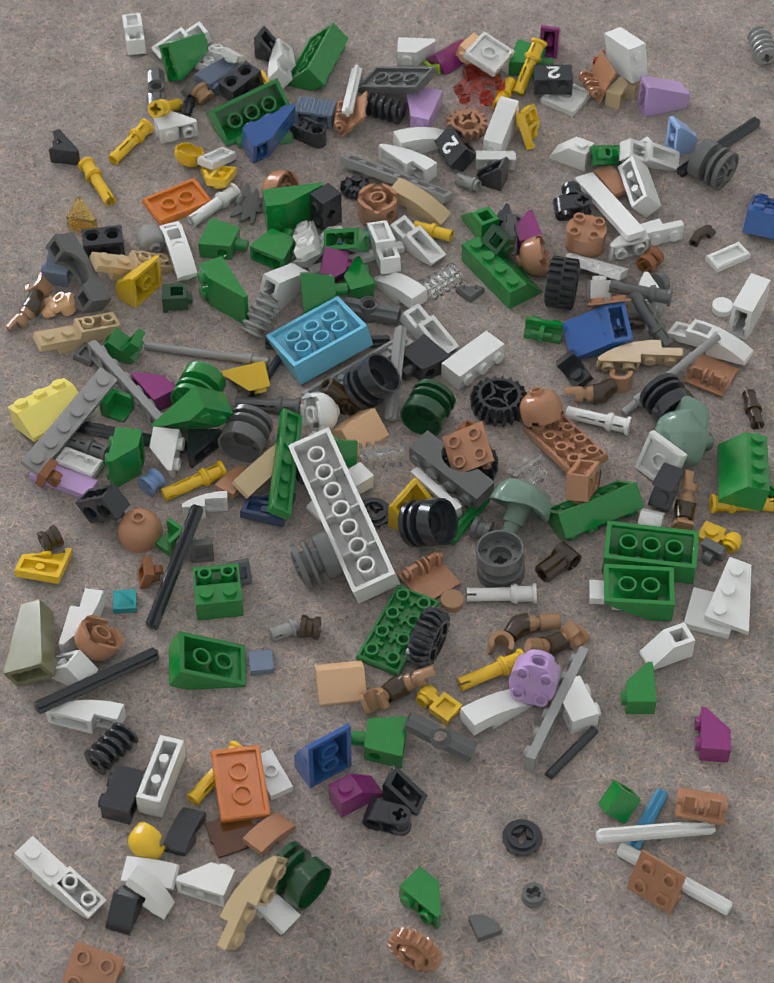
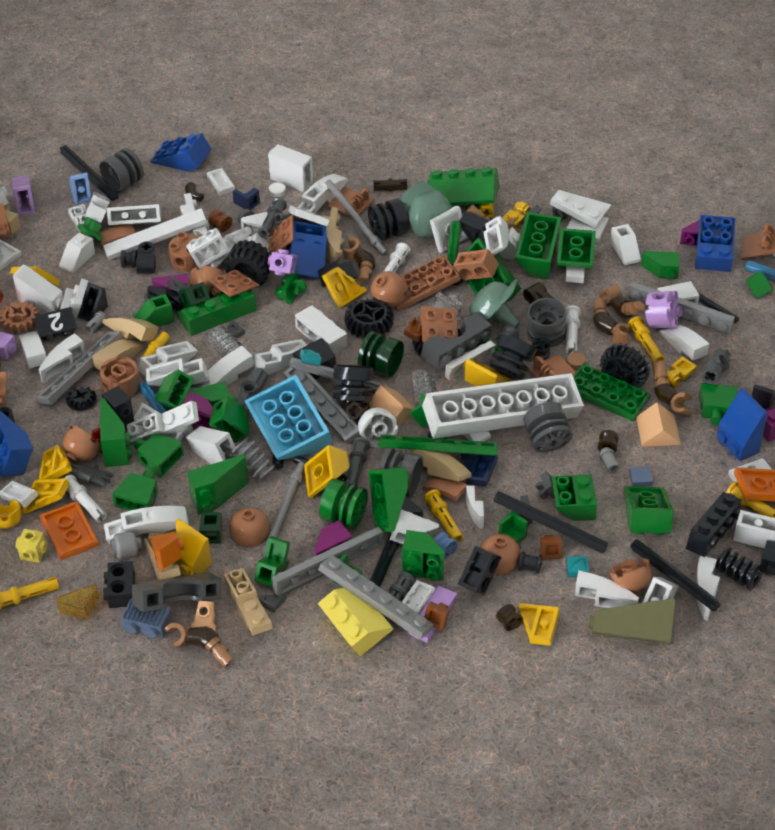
camera: 85 degrees left, 5 degrees down
(116, 250) = (166, 549): none -> orange slope
(126, 556) = (530, 562): none -> black bush
(150, 175) = (31, 545): none -> light yellow brick
(167, 717) = (714, 524): none -> black brick
(178, 327) = (249, 527): none -> nougat cylinder
(253, 176) = (54, 463): none -> yellow wing
(407, 342) = (310, 356): none -> teal tile
(455, 206) = (132, 328): none -> tan slope
(467, 557) = (543, 347): none -> black wheel
(523, 270) = (231, 283): none -> nougat hinge
(543, 368) = (342, 287): none -> yellow wing
(557, 304) = (286, 266): none -> lavender brick
(575, 241) = (207, 248): none -> white bracket
(632, 468) = (454, 241): none -> green axle
(635, 497) = (496, 235): none -> white slope
(640, 317) = (308, 215): none -> white tile
(682, 744) = (715, 243): none -> blue slope
(694, 281) = (246, 200): none -> dark blue panel

